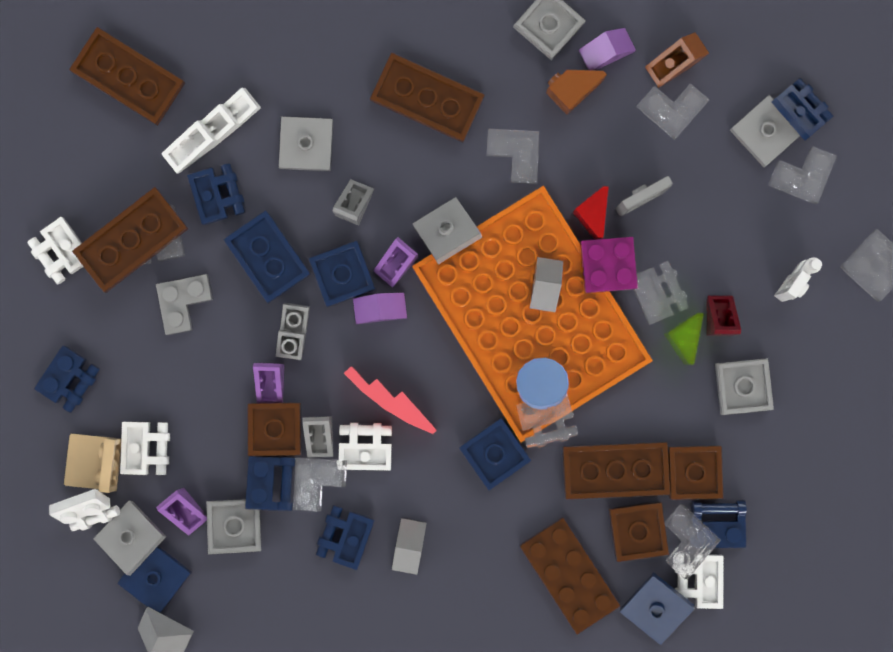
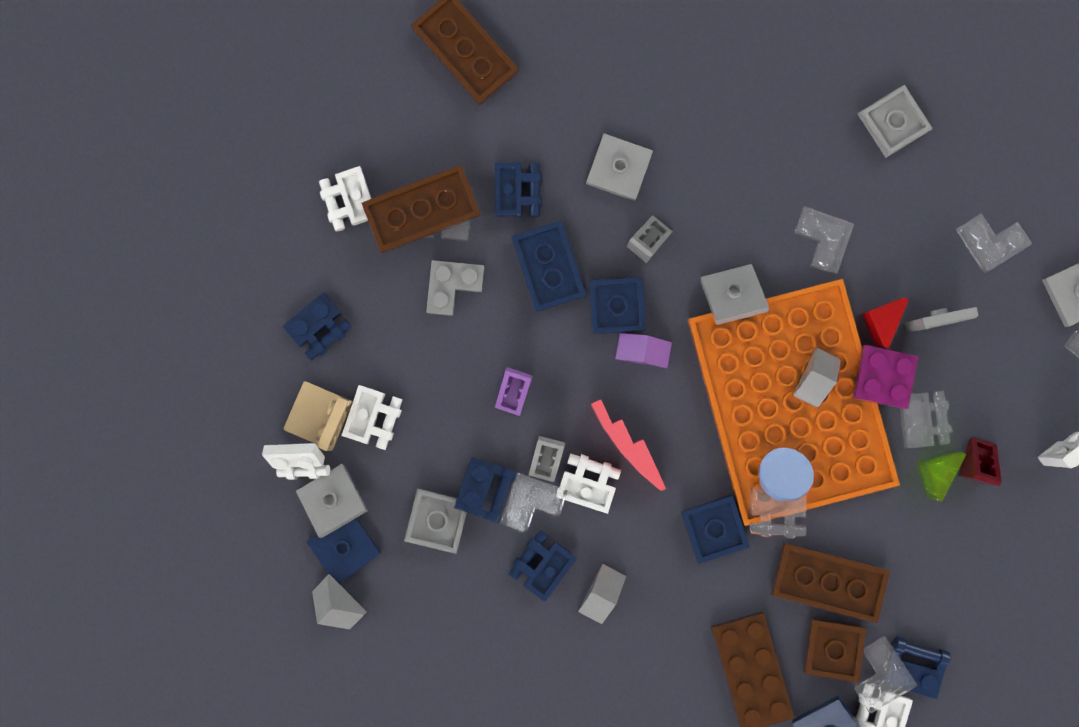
camera: 25 degrees right, 0 degrees up
(183, 511) = (391, 491): medium lavender slope -> none
(211, 130) = (530, 126): white slope -> none
(274, 429) = (505, 438): reddish brown plate -> none
(292, 331) = (551, 347): light grey slope -> none
(395, 262) = (674, 309): medium lavender slope -> none
(427, 97) = (753, 157): reddish brown plate -> none
(573, 87) = (900, 190): dark orange slope -> none
(607, 49) = (943, 163): medium lavender slope -> none
(677, 59) = (1011, 194): dark orange slope -> none
(695, 472) = (909, 609): reddish brown plate -> none
(744, 386) = (982, 538): light grey plate -> none

